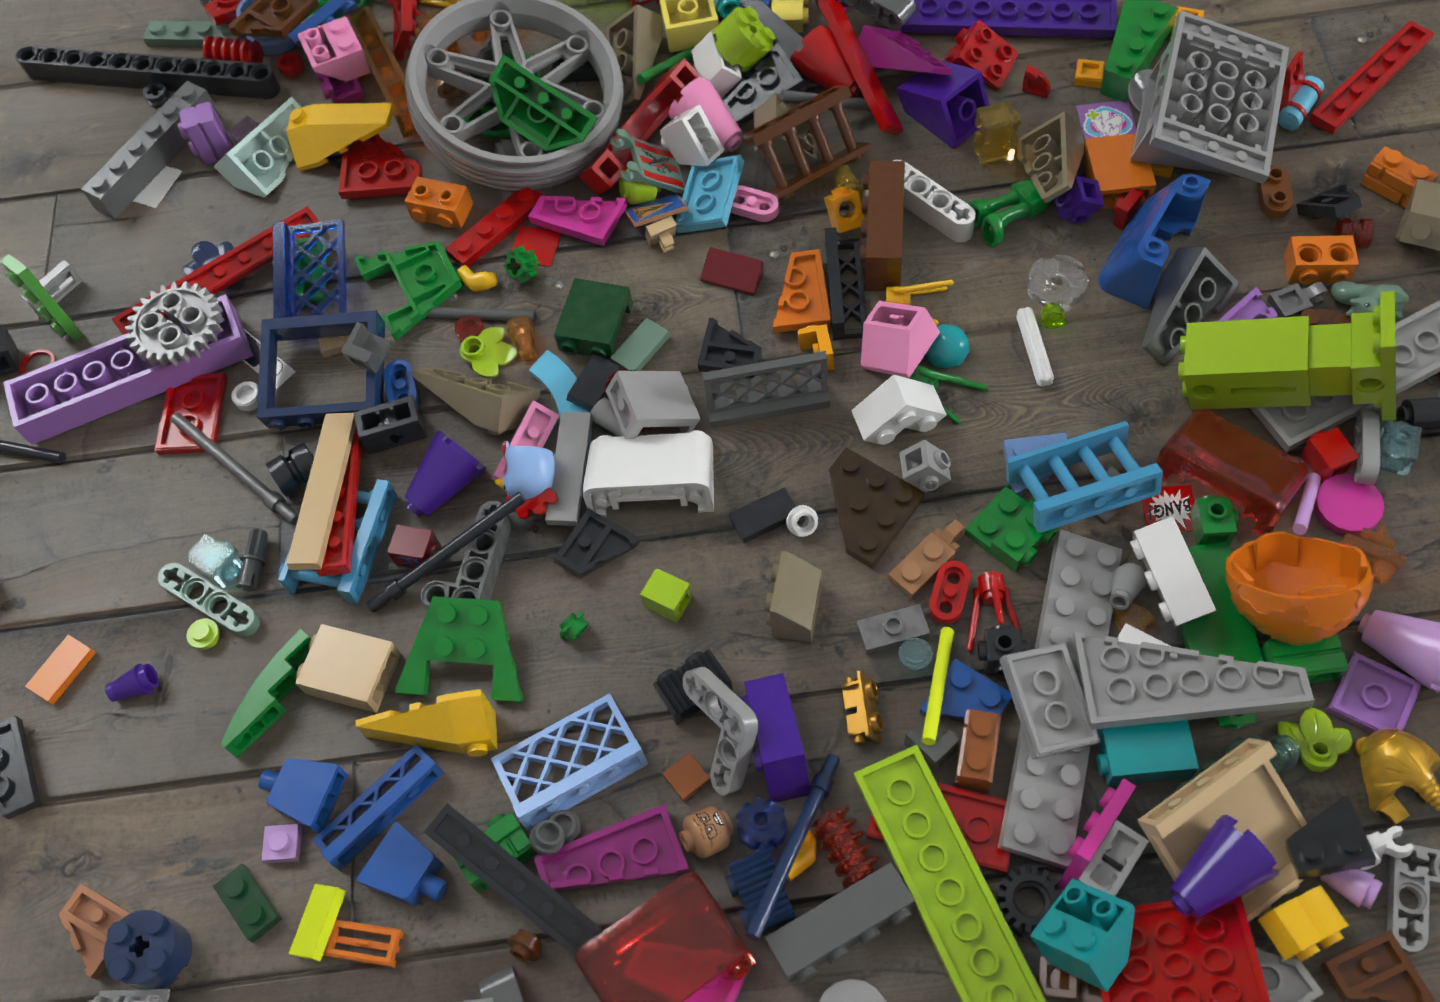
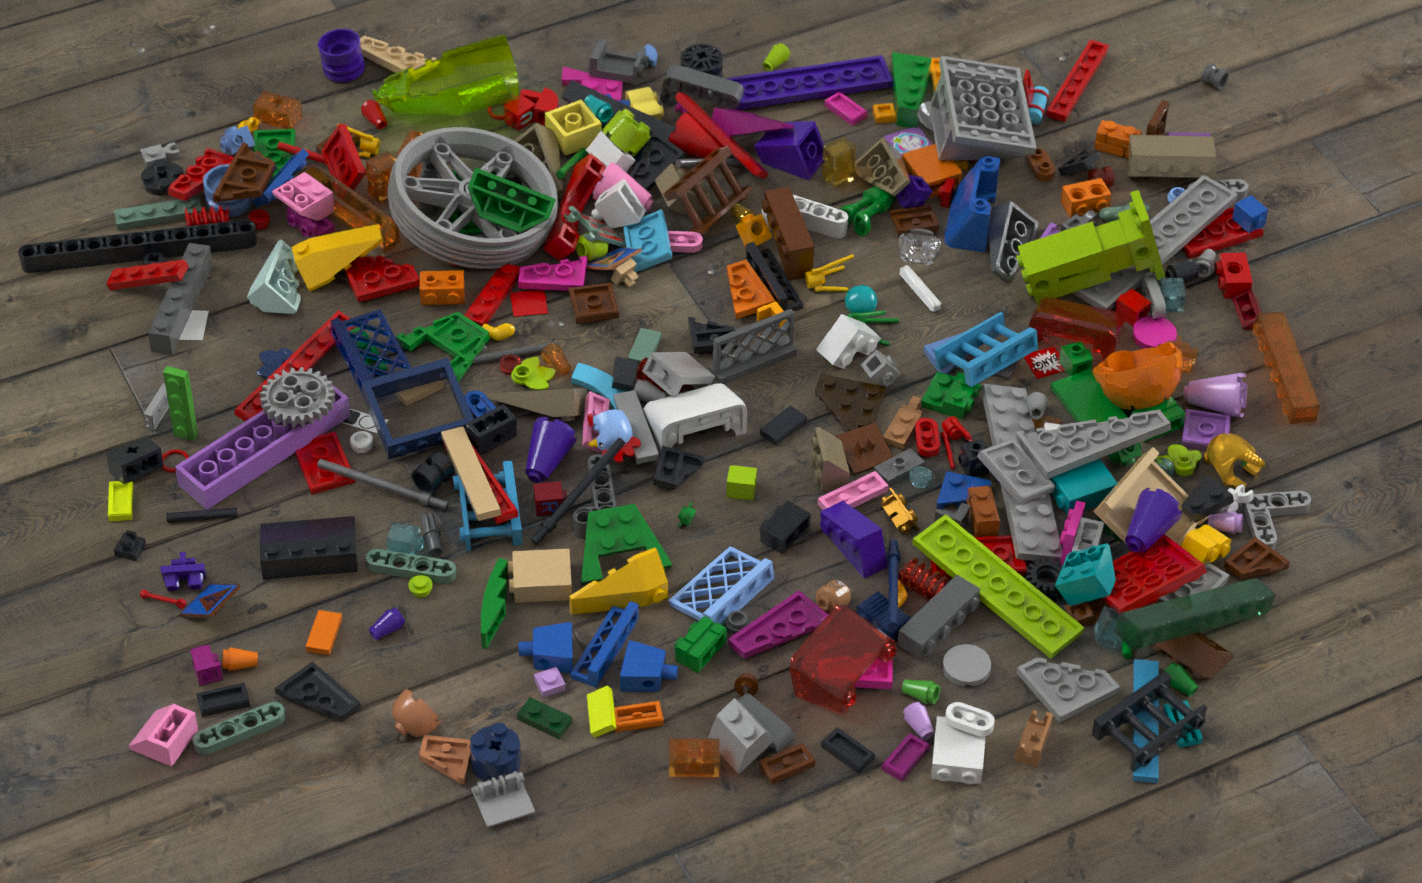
camera: 30 degrees left, 15 degrees down
(81, 848) = (413, 716): none -> nougat cylinder
(106, 533) = (308, 547): none -> black slope
(126, 111) = (147, 274): none -> red plate
(205, 132) = (227, 276): medium lavender brick -> none
(242, 129) = (248, 272): clear purple tile -> none
(365, 349) = (455, 383): dark grey panel -> none
(512, 879) = (727, 646): black plate -> none
(521, 264) = (528, 318): green gear -> none
(547, 837) = (734, 622): dark grey plate -> none
(592, 318) = (603, 335): dark green panel -> none
(607, 262) = (593, 303): none -> reddish brown plate
(686, 777) = (804, 577): dark orange tile -> none
(732, 271) = (688, 286): dark red slope -> none
(737, 727) = (829, 531): light grey beam -> none
(766, 835) = (866, 582): clear blue brick -> none
(808, 526) = (817, 420): white plate -> none
(811, 657) = (856, 491): none -> bright pink plate
(855, 585) = (864, 448): none -> reddish brown piece
(896, 338) = (827, 298): bright pink slope -> none
(937, 686) = (943, 485): neon yellow bar -> none
(984, 51) = (801, 108): red bracket -> none
(1036, 82) = (850, 125): red tile -> none
(1042, 55) = (845, 108): none -> dark pink tile
(1055, 315) = (924, 267): clear neon green hinge -> none
(1067, 238) = (914, 218): none -> reddish brown plate
(1172, 572) = (1062, 386): white wedge -> none
(1306, 504) = (1129, 335): lavender bar -> none

